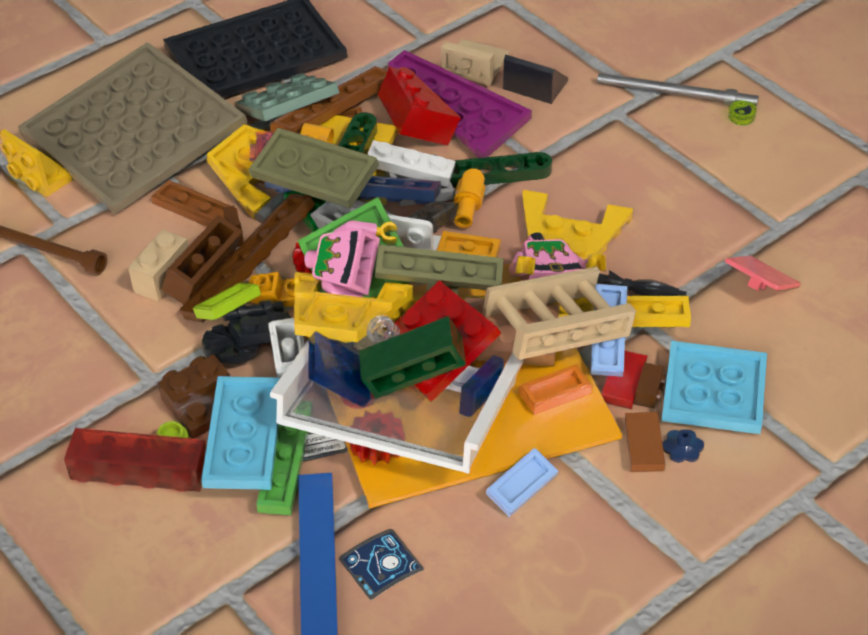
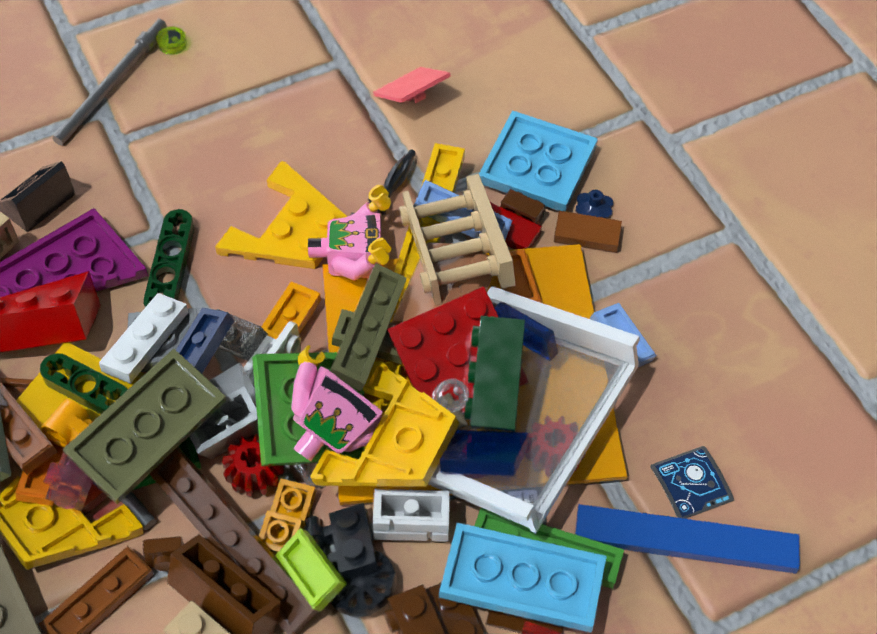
camera: 80 degrees left, 10 degrees up
(469, 197) = (205, 293): light orange arm -> none

